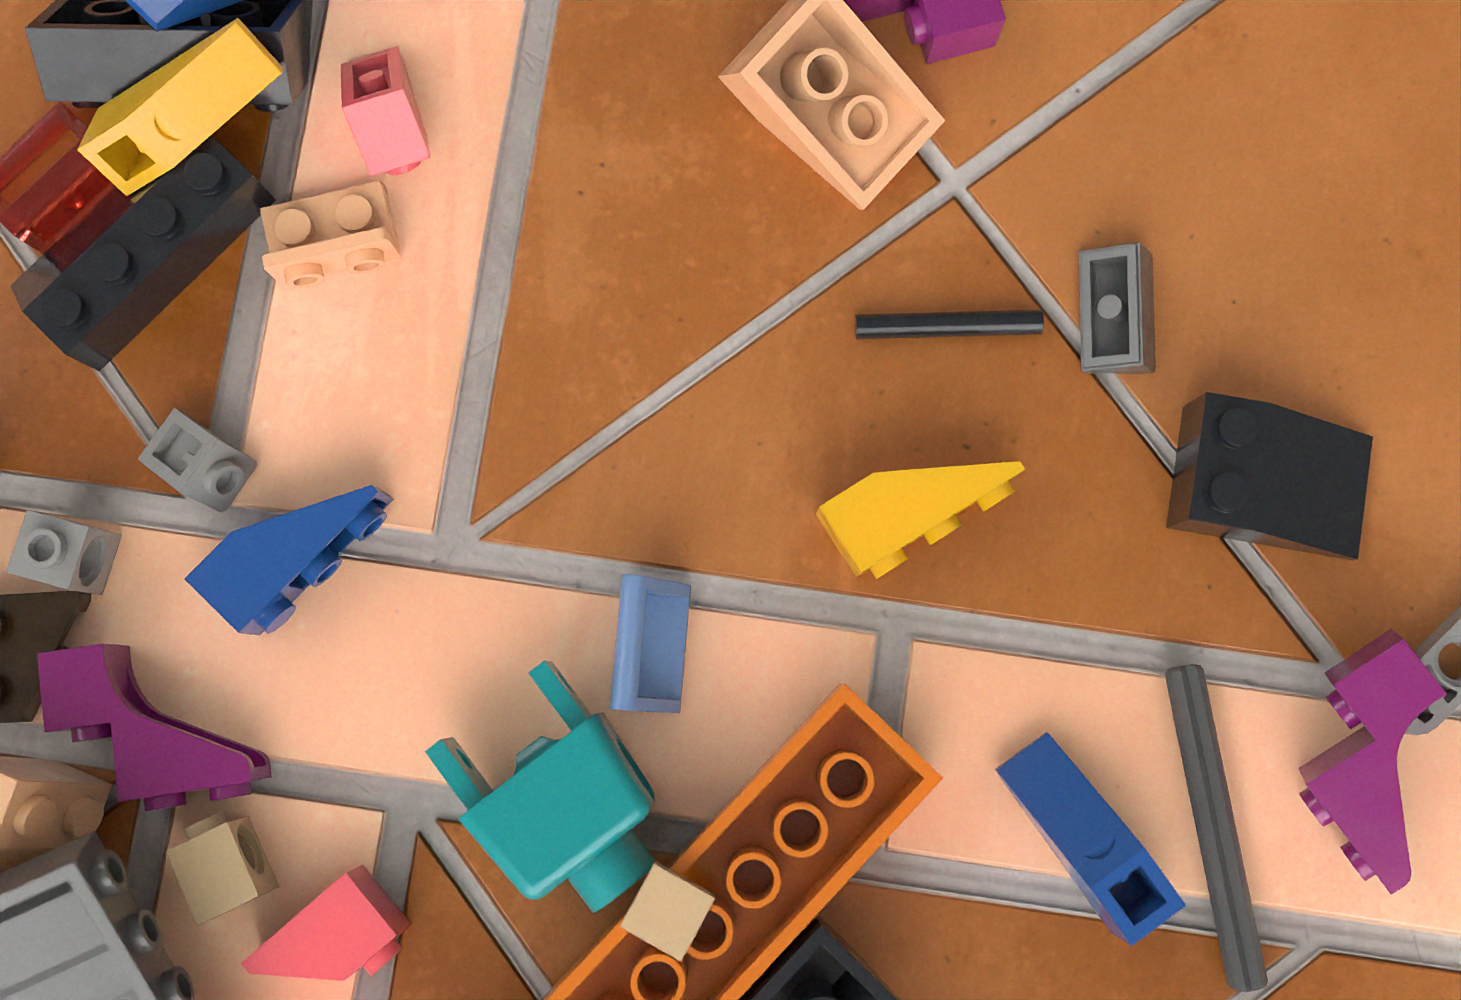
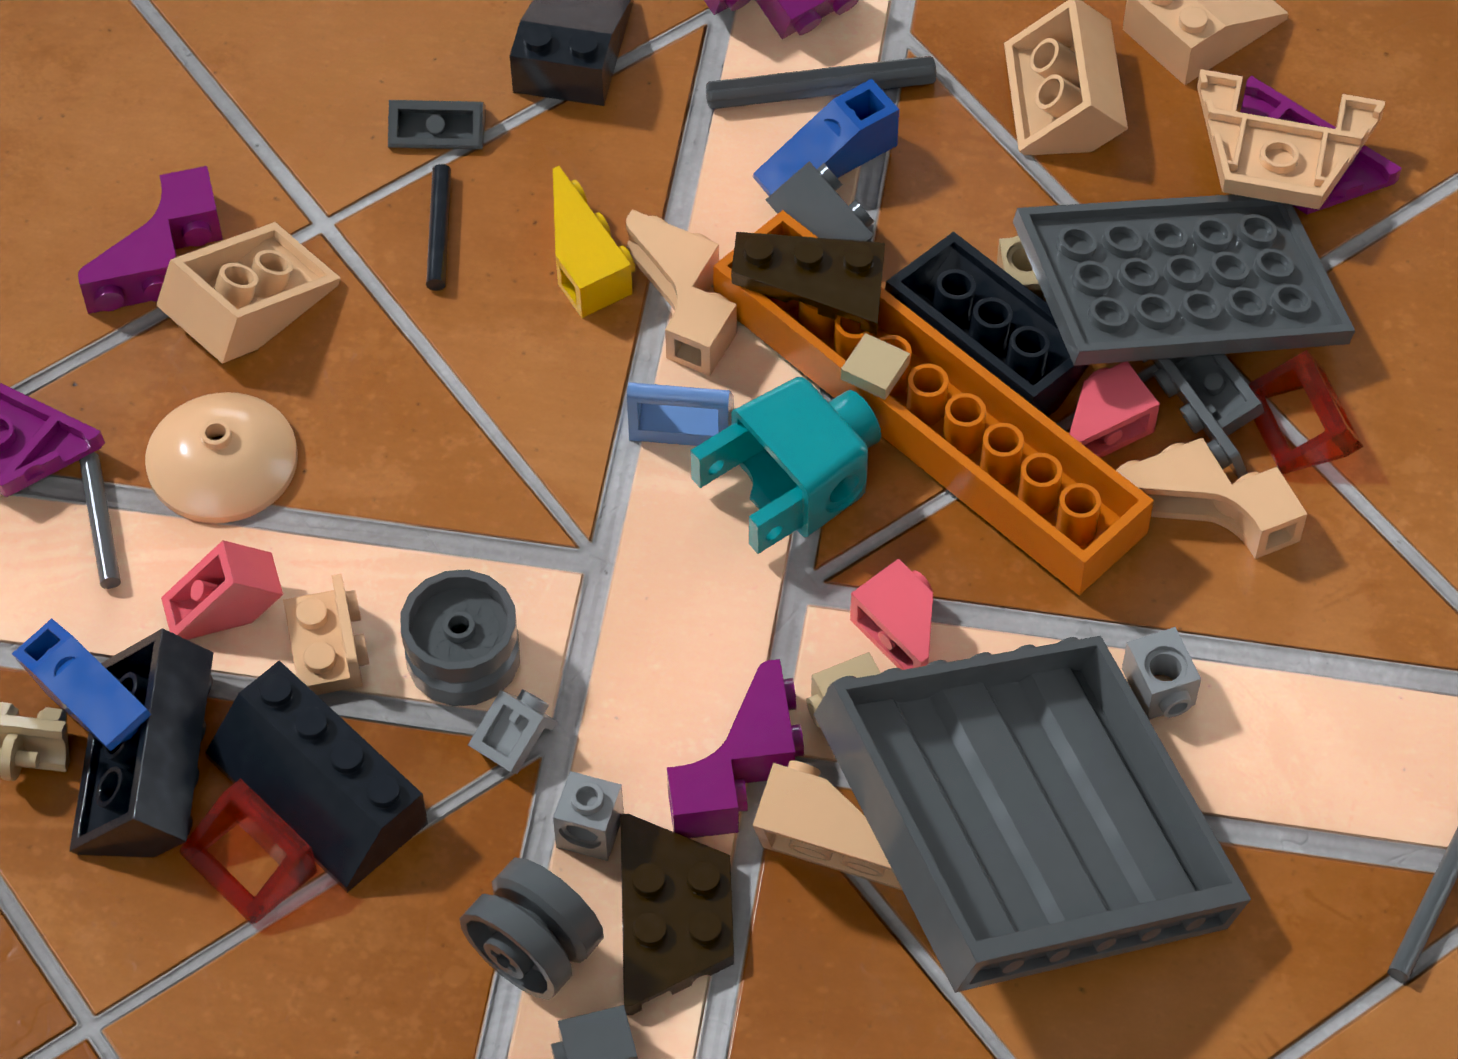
camera: 90 degrees left, 25 degrees down
(177, 107) = (220, 717): yellow slope -> none
(263, 380) = (460, 637): none -> dark grey wheel
(270, 563) = (607, 670): blue slope -> none
(600, 127) = (224, 476): none -> light nougat dish
(824, 829) = (821, 272): none -> dark brown wing
(876, 643) = (682, 272): none -> light nougat arch
(970, 824) = (816, 205): none -> dark grey slope

